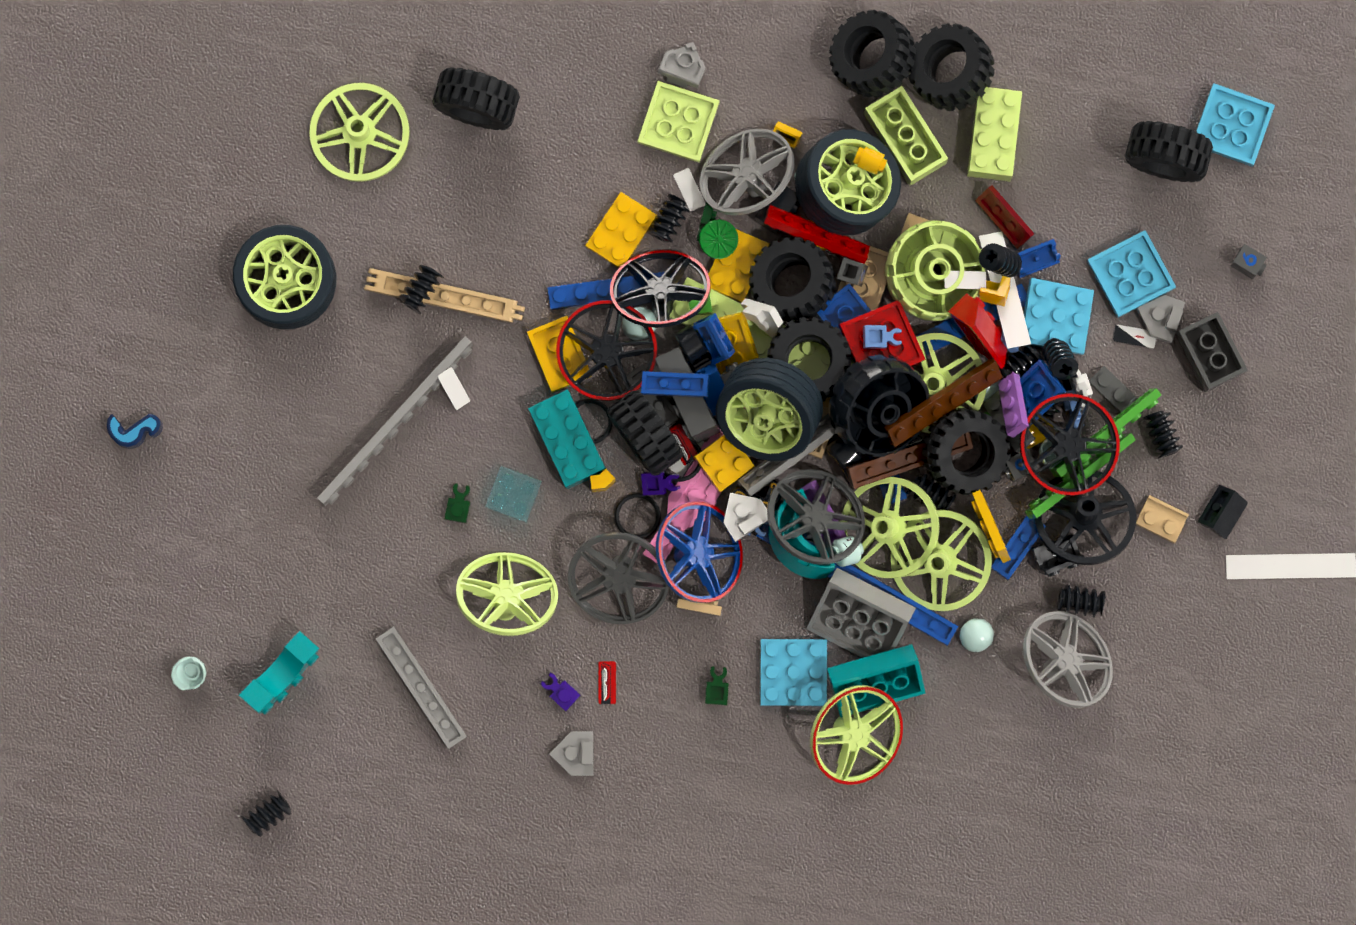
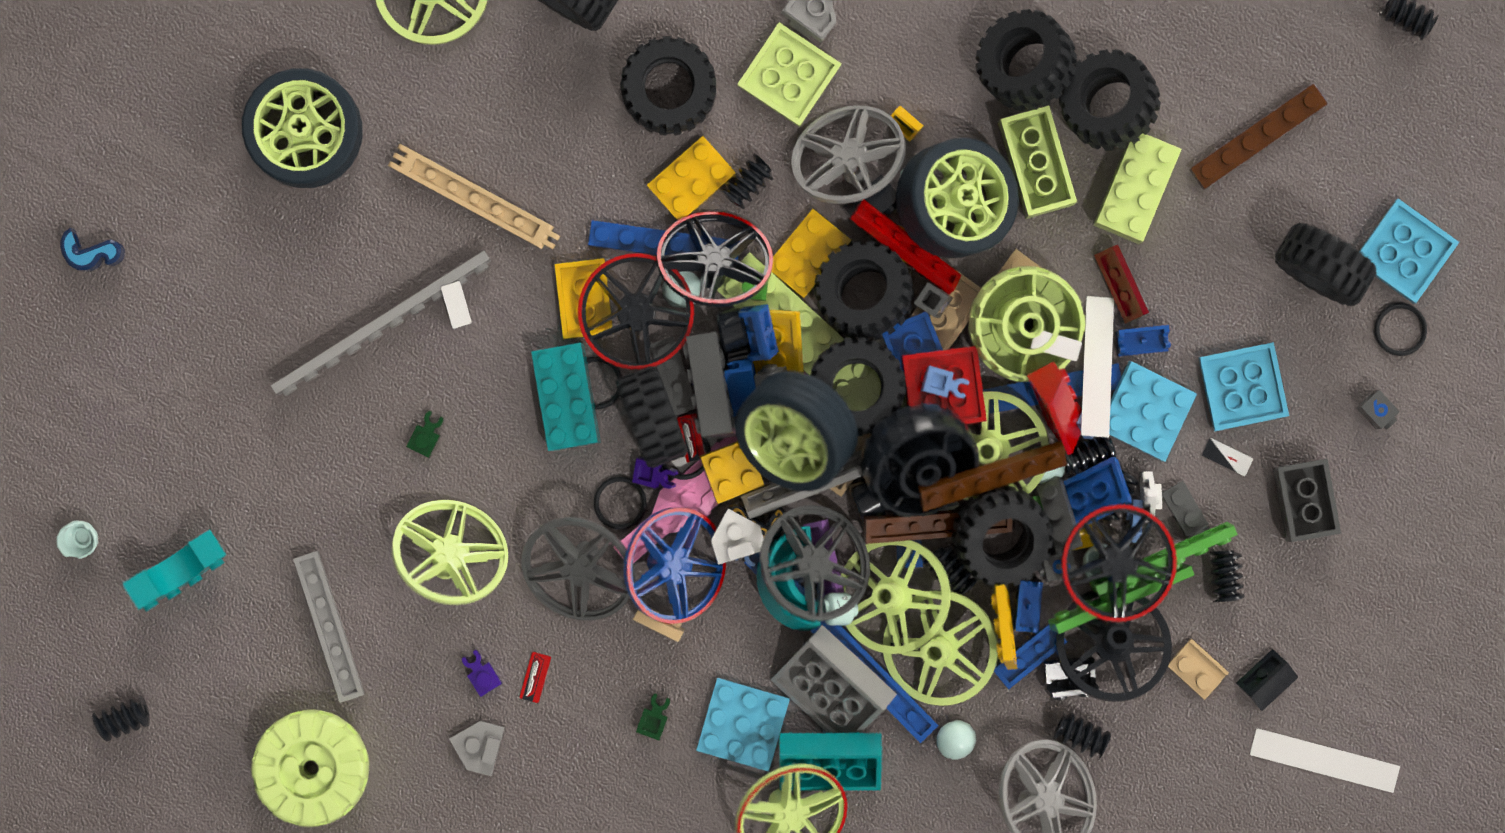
camera: 10 degrees right, 5 degrees up
(413, 807) = (282, 773): none -> yellowish green wheel
(420, 288) = (449, 183): black piece -> none
(513, 494) = (489, 441): clear light blue plate -> none
(580, 129) = (661, 52): none -> black tyre
(602, 481) = (590, 455): yellow piece -> none
(675, 384) = (699, 373): blue plate -> none
(689, 189) = (780, 154): white sticker -> none
(708, 215) = (791, 192): dark green plate -> none
(718, 239) = (795, 220): green wheel -> none
(763, 316) = (819, 321): white plate -> none
(870, 160) = (988, 182): yellow brick -> none
(996, 292) = (1087, 367): yellow panel -> none
(1000, 260) = (1102, 334): black piece -> none
(1004, 506) = (1028, 606): none -> blue hinge
(1013, 404) = (1069, 500): medium lavender plate -> none
(1060, 359) = (1136, 462): black piece -> none
(1083, 65) = (1258, 136): none -> reddish brown plate
(1162, 317) = (1263, 445): light grey plate -> none
(1253, 171) = (1377, 329): none -> black tyre

